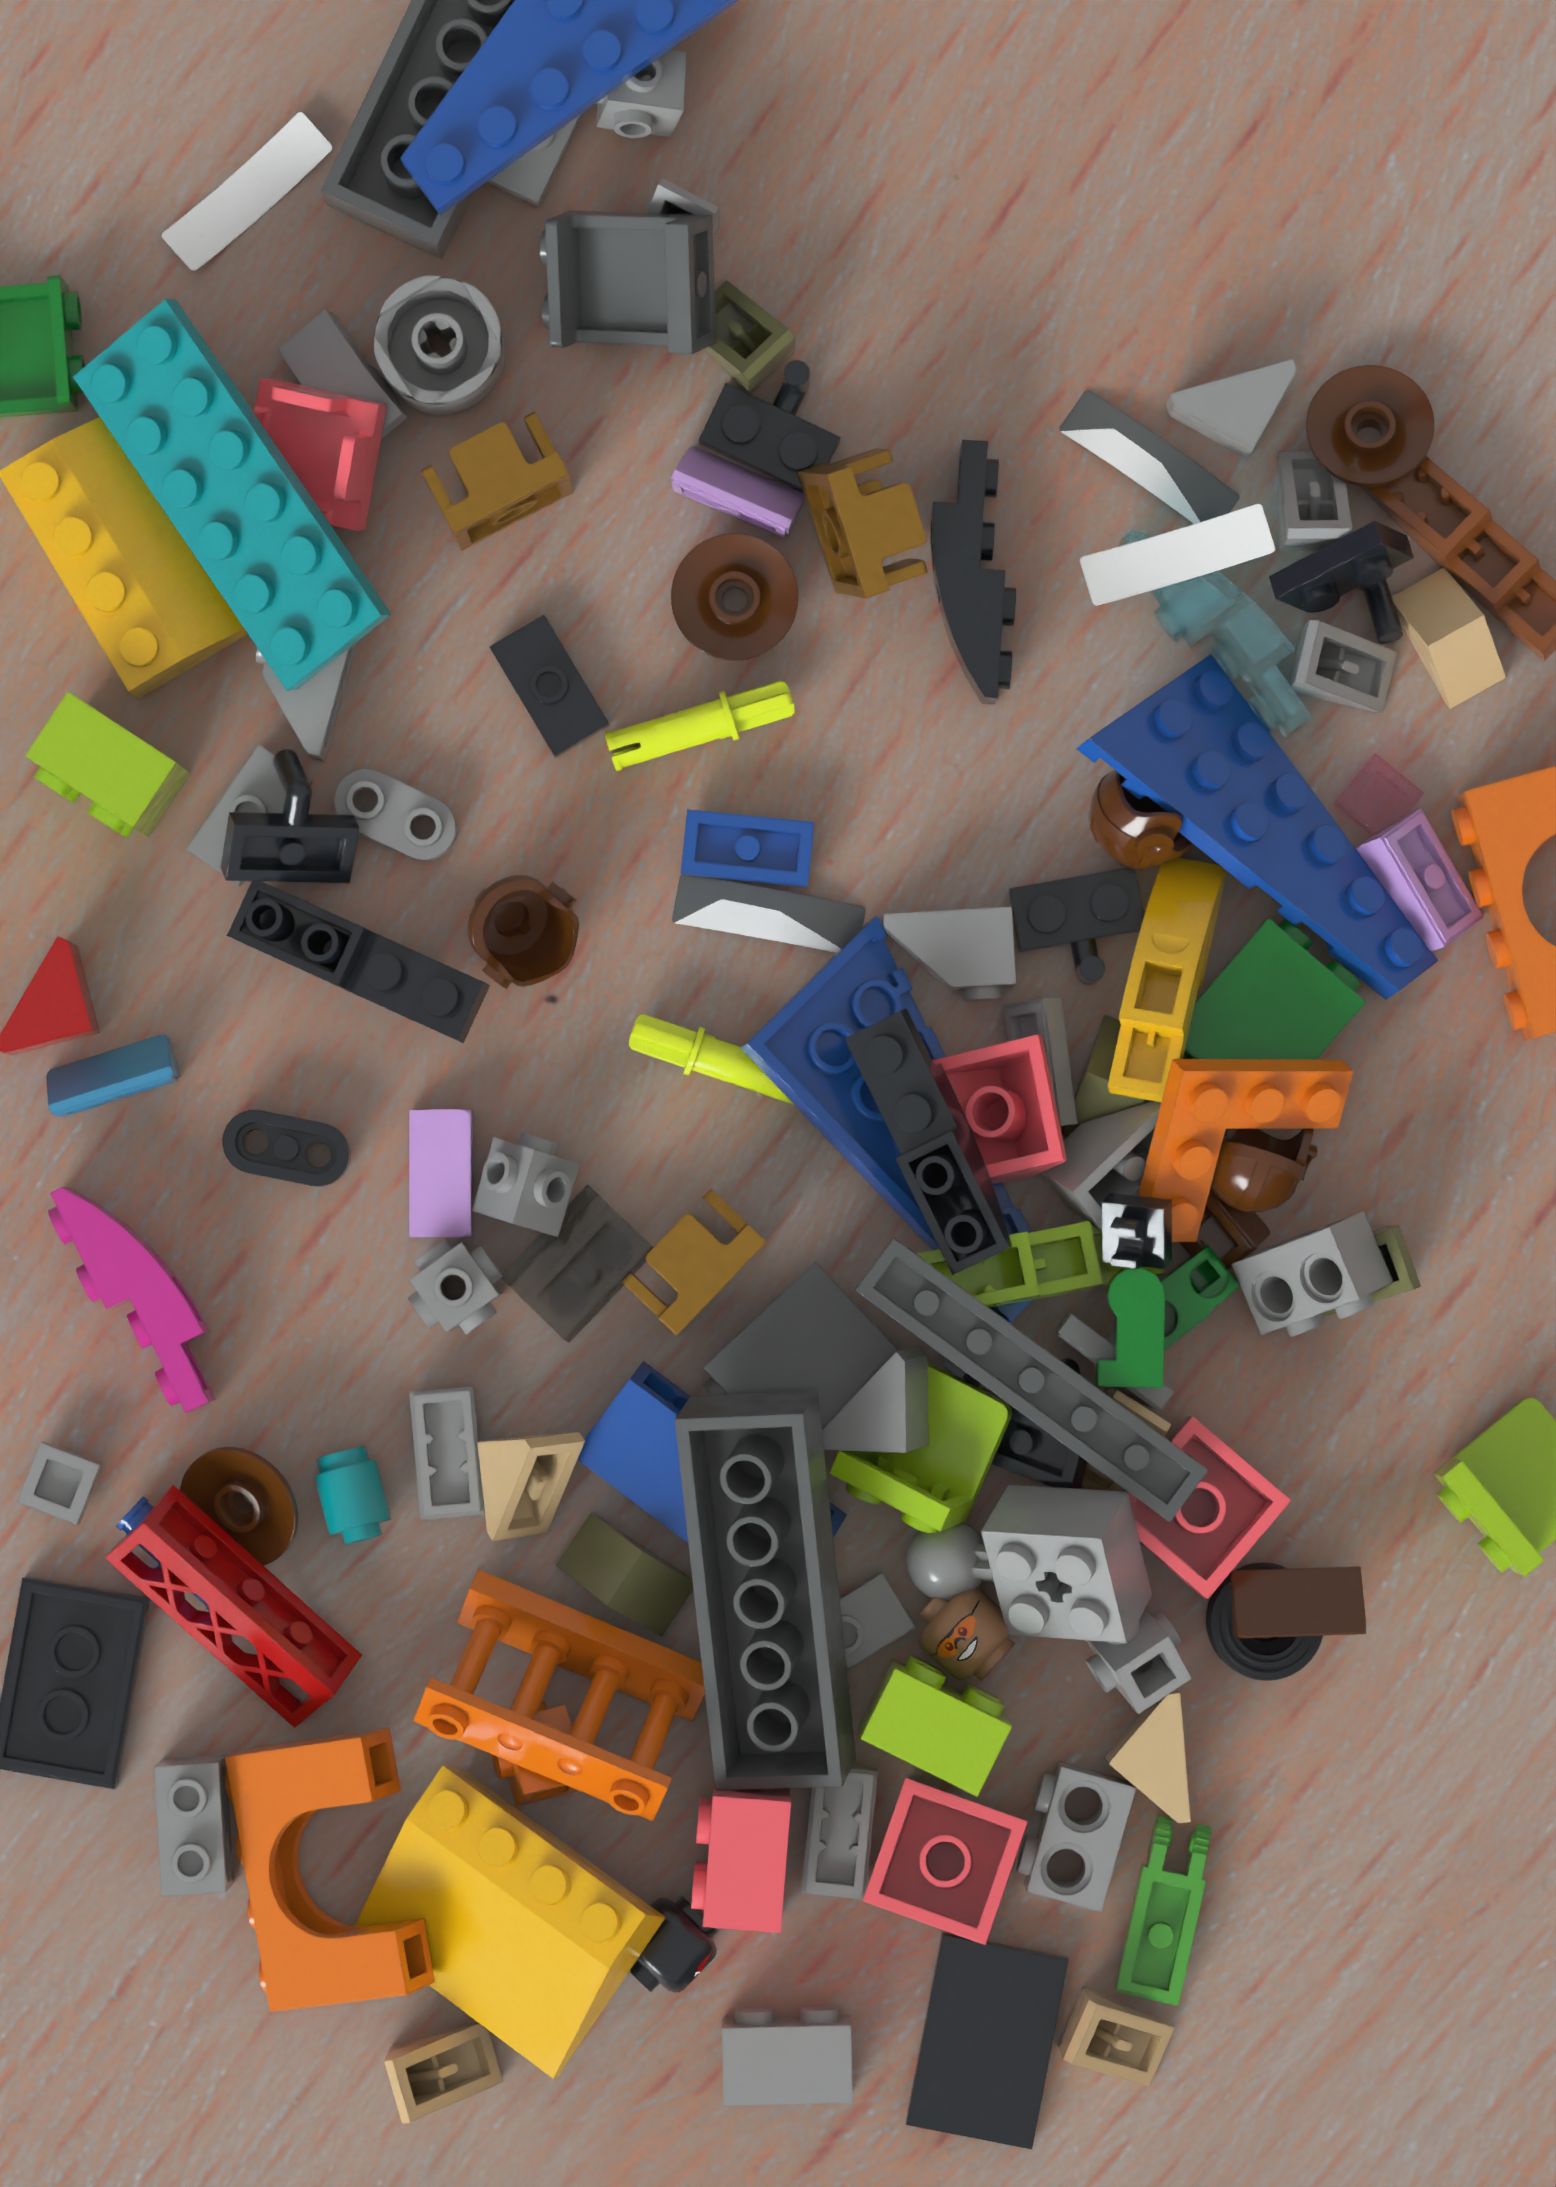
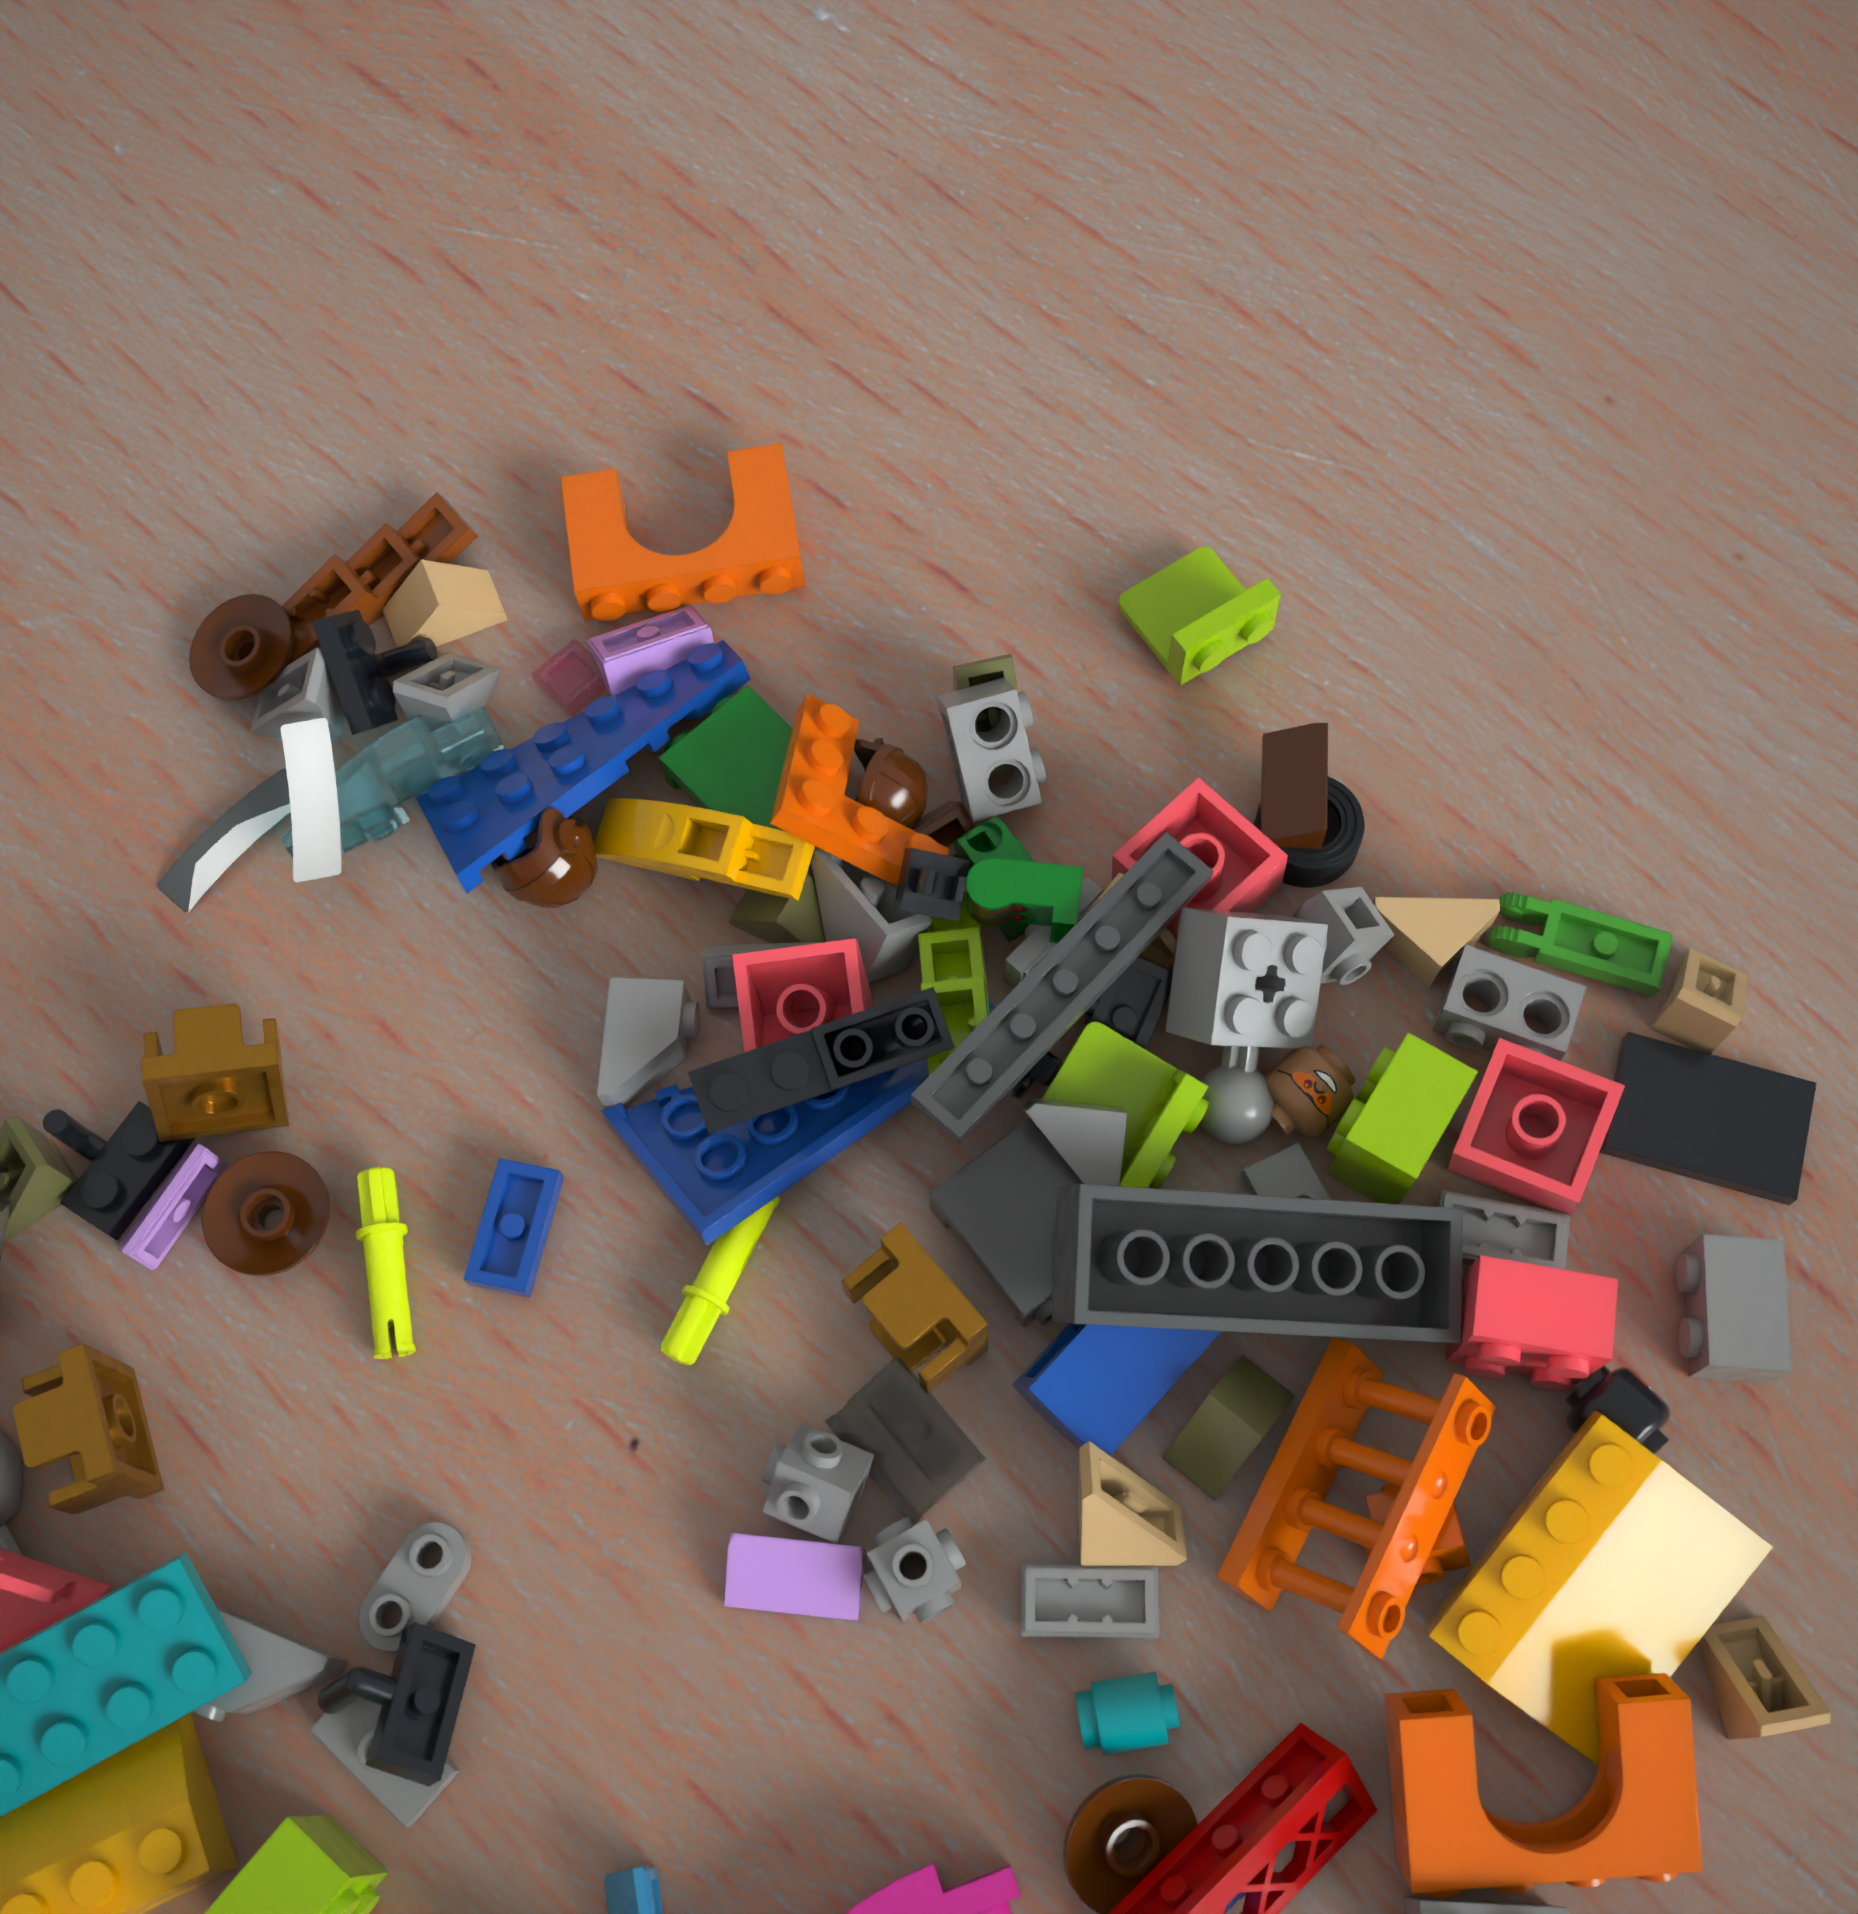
camera: 75 degrees left, 20 degrees down
(287, 1148) = (745, 1746): black plate -> none
(358, 960) = (555, 1644): black slope -> none
(523, 930) = (551, 1455): reddish brown cap -> none
(549, 686) = (316, 1410): black plate -> none
(766, 913) = (581, 1222): dark grey sticker -> none
(972, 598) = (312, 998): black slope -> none
(1078, 914) = (631, 929): black plate -> none
(1234, 407) = (198, 757): light grey slope -> none

